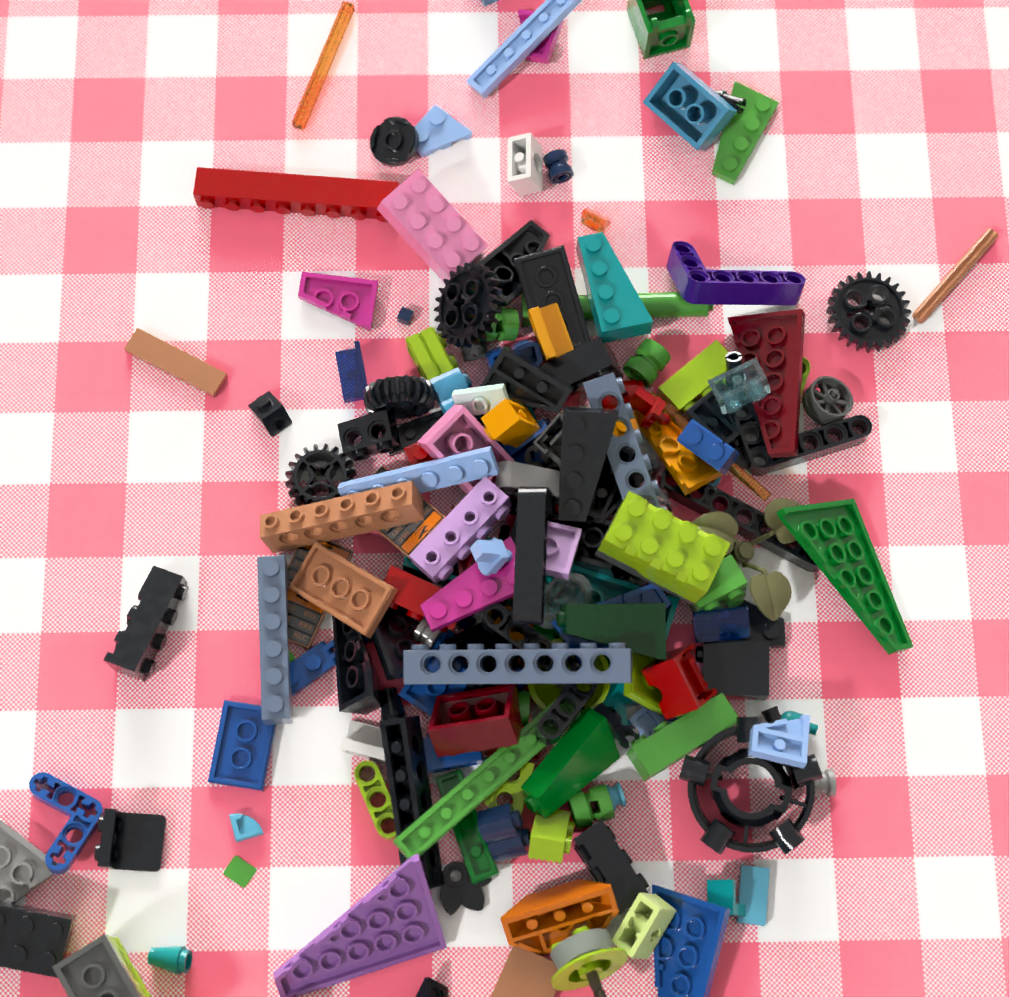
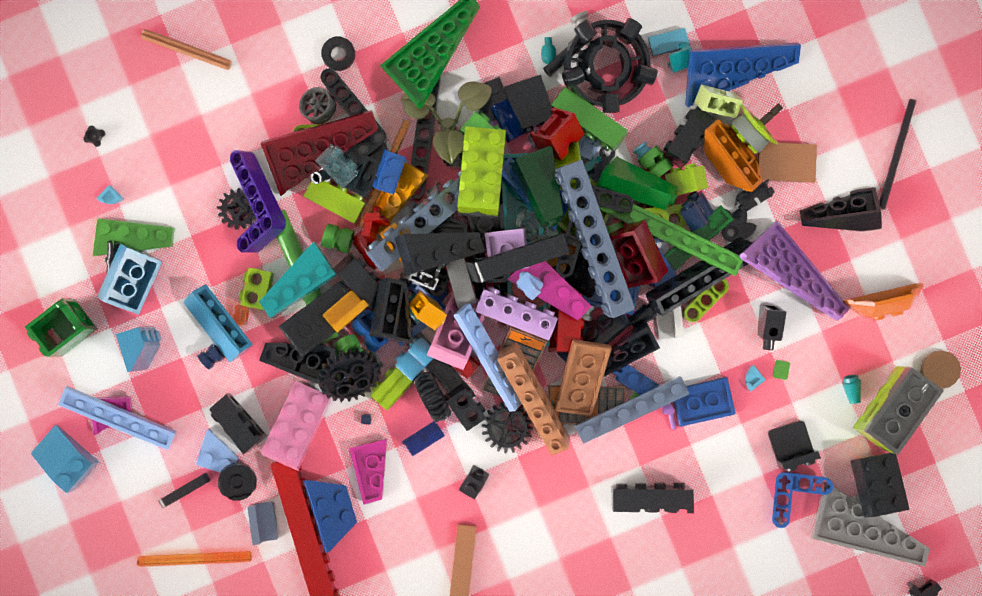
camera: 110 degrees left, 15 degrees up
(252, 695) = (668, 409): none -> medium lavender hand
(306, 875) = (771, 317): none -> black torso
(310, 232) = (331, 511): none -> blue wing
(332, 152) = (262, 522): none -> sand blue panel
(409, 81) = (184, 490): none -> black beam
(463, 165) = (237, 423): none -> black wedge
(480, 399) = (417, 337): light aqua plate -> none
(490, 915) = (747, 199): none -> black hinge
(525, 164) = (220, 380): white brick -> none
(596, 186) = (217, 323): none -> dark azure brick
(601, 84) = (138, 347): none -> dark azure slope
(627, 241) = (250, 287): none -> lime brick
(724, 250) = (237, 216): none -> black gear
(781, 741) = (575, 51): light blue wing -> none
(801, 126) = (109, 196): none -> medium azure tile
(875, 331) = (225, 109): black gear -> none
(884, 128) = (91, 130): none -> black plate
(895, 440) = (329, 45): none -> black tyre

